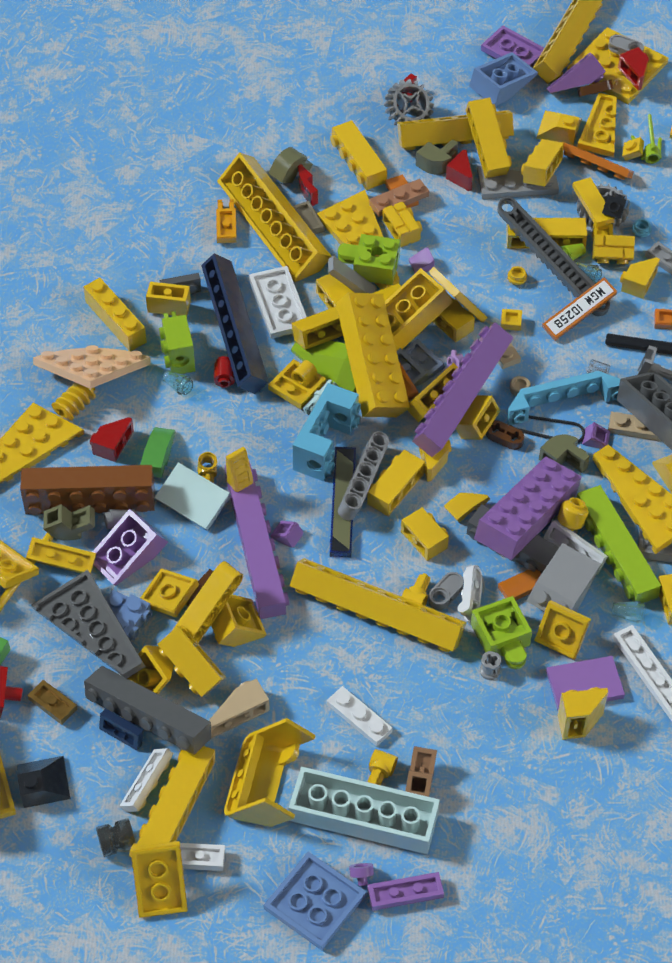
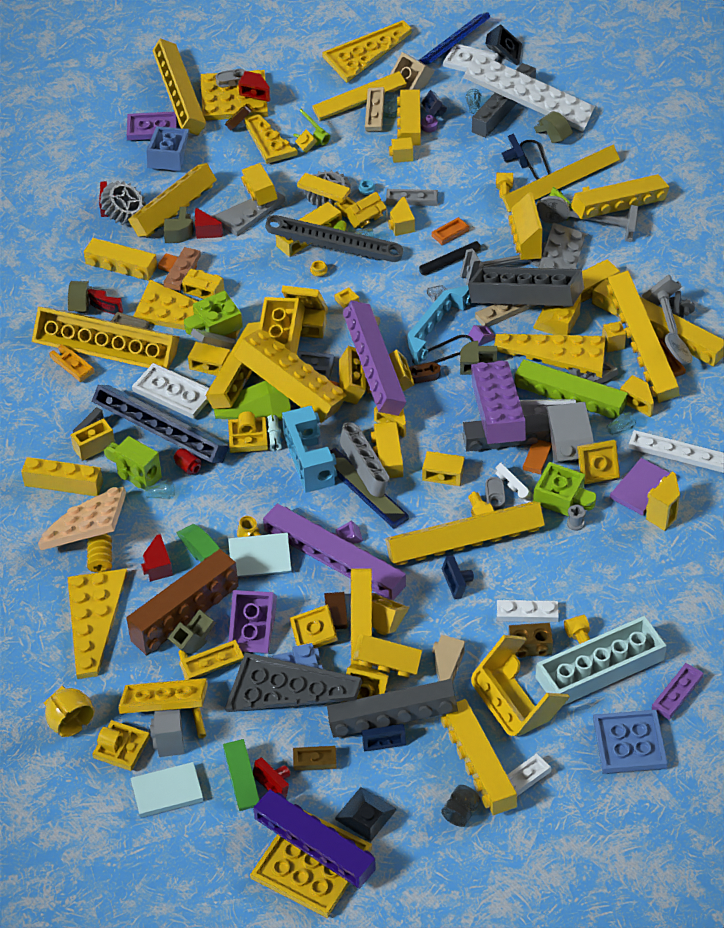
camera: 40 degrees left, 5 degrees down
(113, 516) = (221, 608): light grey cone -> none
(146, 780) = (438, 755): white plate -> none
(159, 879) = (525, 803): yellow tile -> none
(238, 473) = (284, 510): yellow slope -> none
(330, 639) = (456, 578): none -> dark blue tile
(333, 739) = (538, 637): none -> pearl gold brick
(361, 871) = (639, 700): medium lavender tile -> none
(421, 771) = (609, 614): medium nougat brick -> none
(422, 260) = (244, 299): medium lavender slope -> none
(454, 358) = (339, 347): lavender plate -> none
(464, 504) = (447, 433): yellow slope -> none
(488, 137) = (208, 189): yellow brick -> none
(519, 383) = (398, 336): tan tile -> none
(559, 127) = (240, 157): yellow slope -> none
(573, 513) = (527, 387): yellow head -> none
(579, 309) = (386, 262): tile -> none
(582, 73) = (222, 110): medium lavender slope -> none
(603, 164) = (299, 162): orange plate -> none
(615, 205) = (343, 179): black bracket -> none

